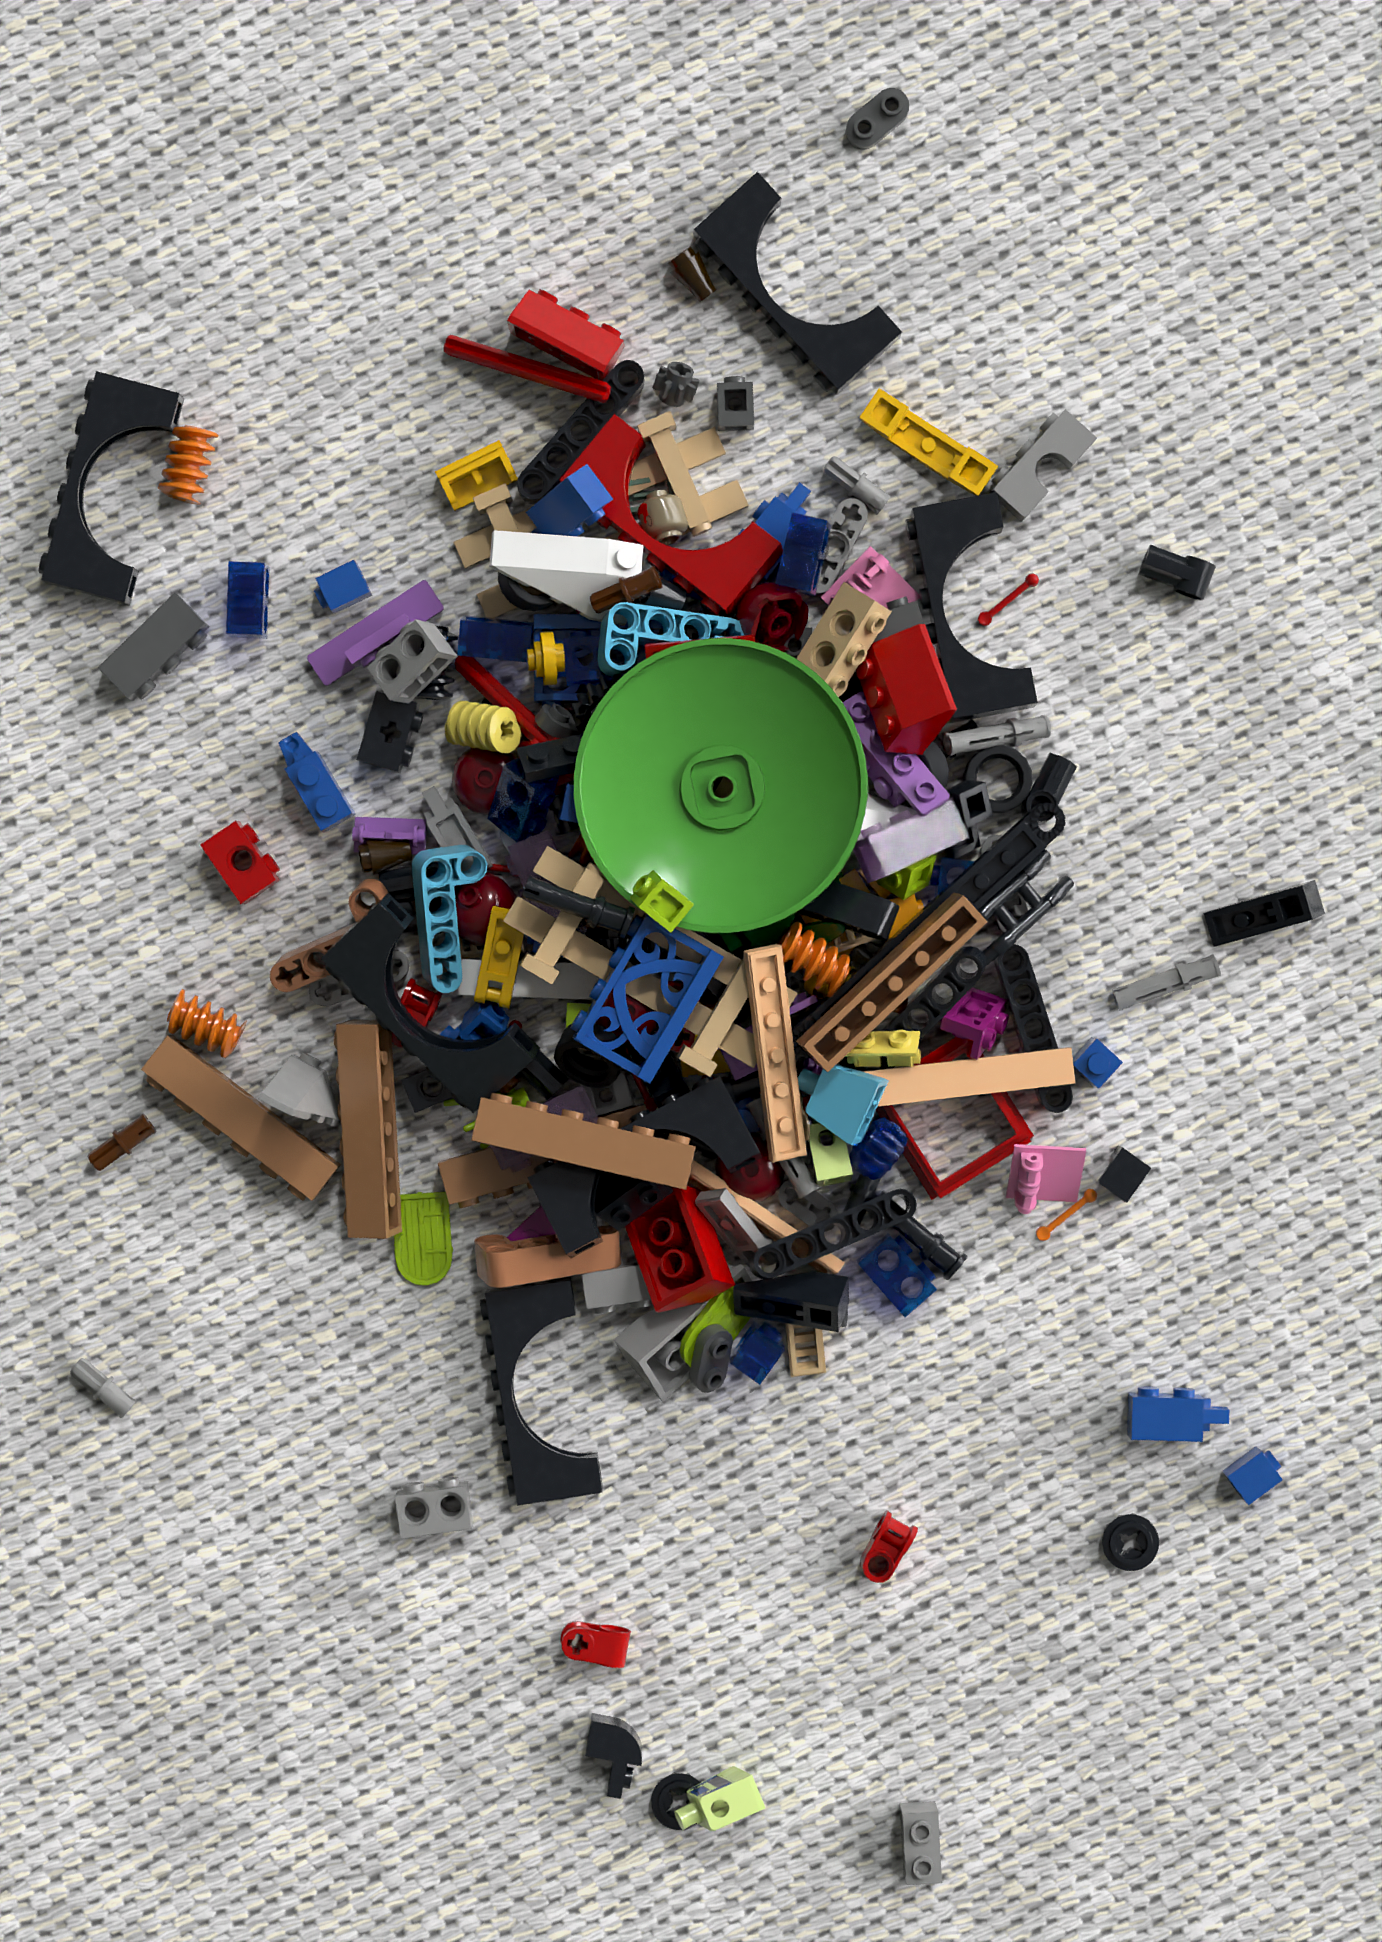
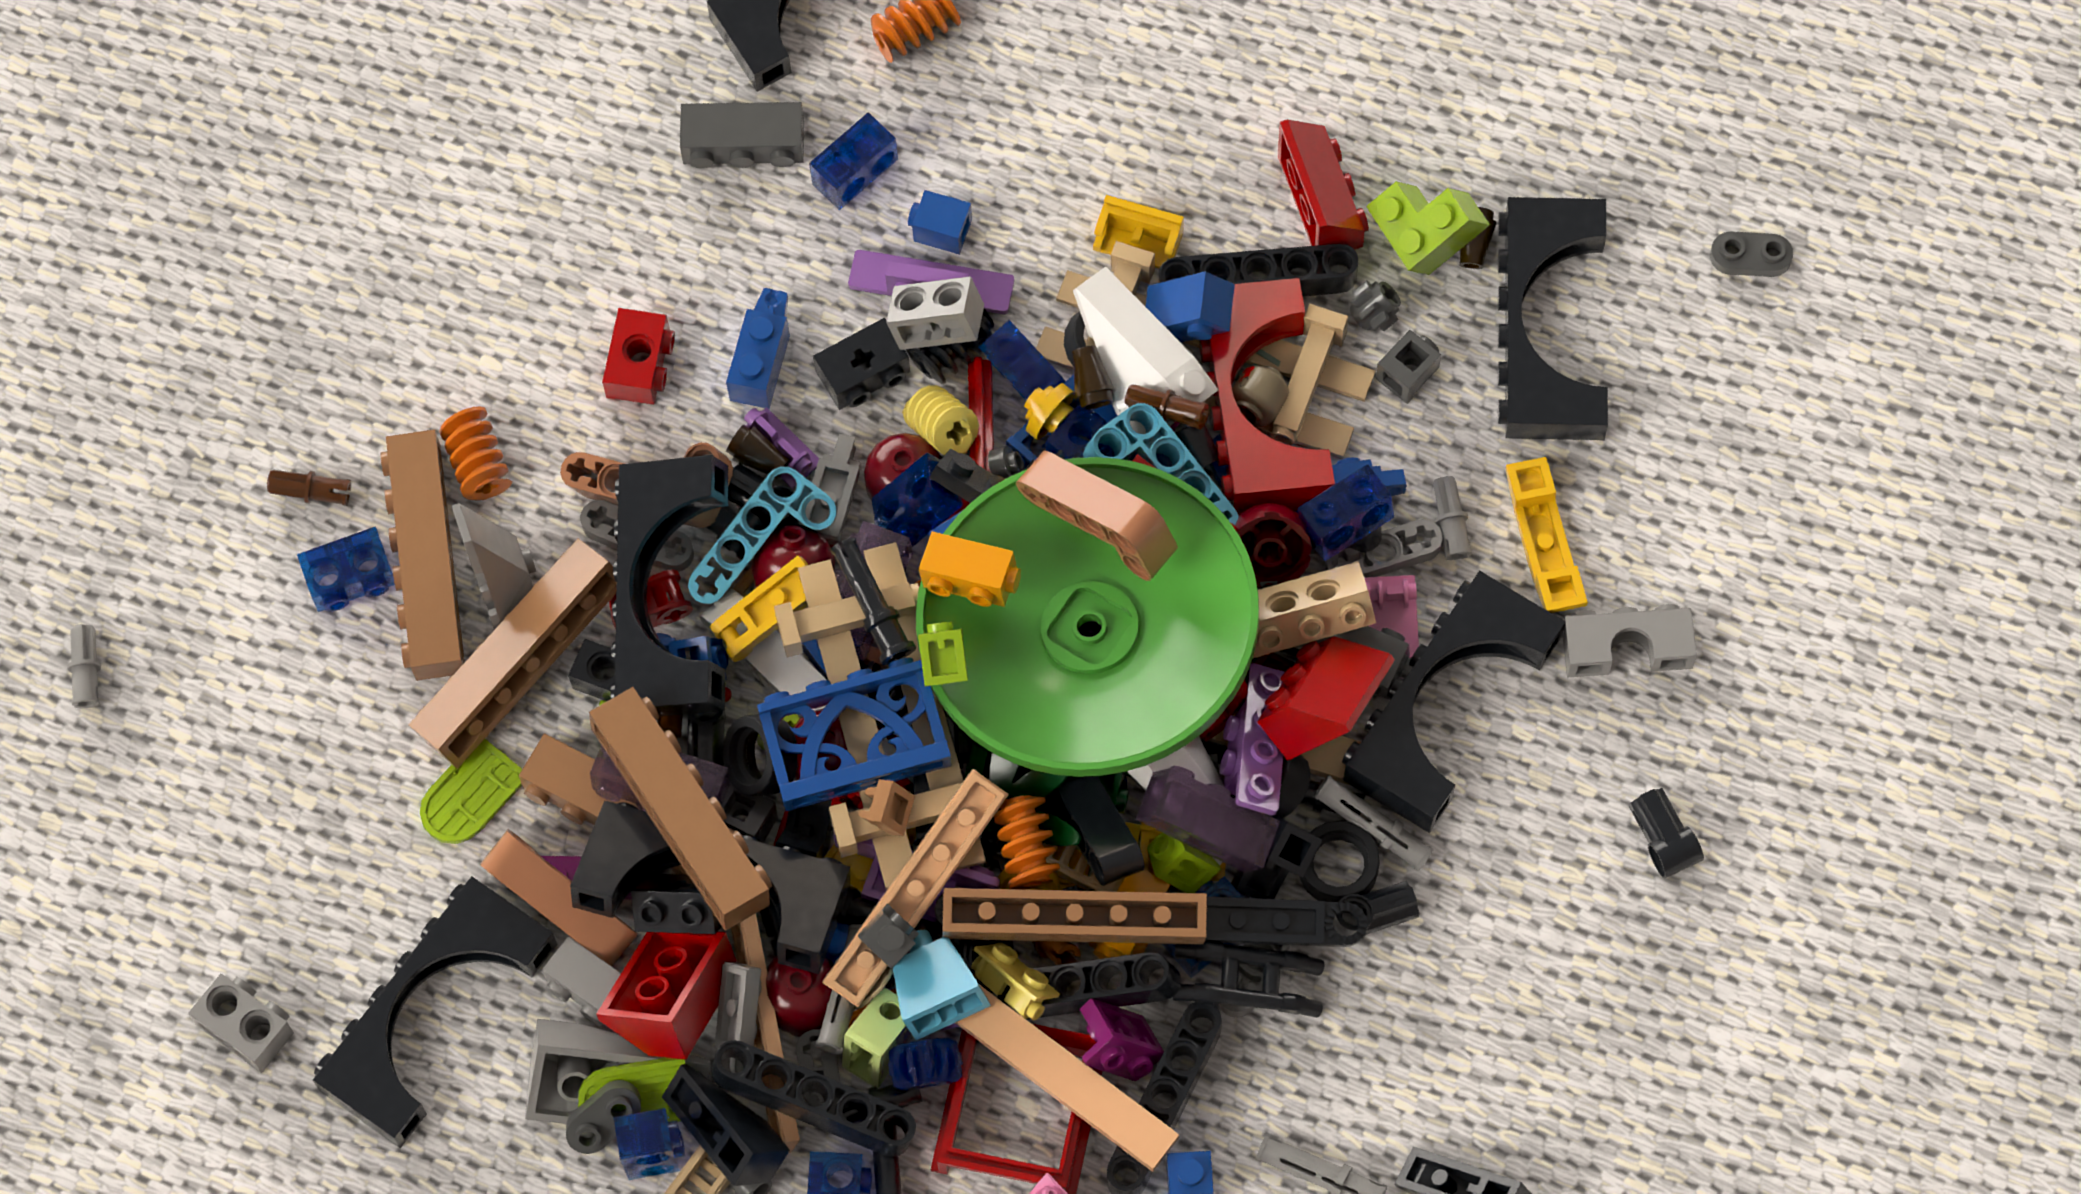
camera: 45 degrees right, 20 degrees down
(195, 1169) = (344, 559): none -> clear blue brick
(527, 368) = (1262, 186): red axle -> none
(558, 616) = (1091, 380): none -> dark brown cone
(622, 829) = (969, 570): none -> light orange brick
(658, 306) = (1424, 231): none -> lime brick
(668, 716) = (1100, 510): none -> nougat beam
(719, 1026) = (889, 807): none -> medium nougat tile
(793, 1103) = (889, 936): none -> dark grey brick
(985, 617) = (1459, 726): red hinge -> none

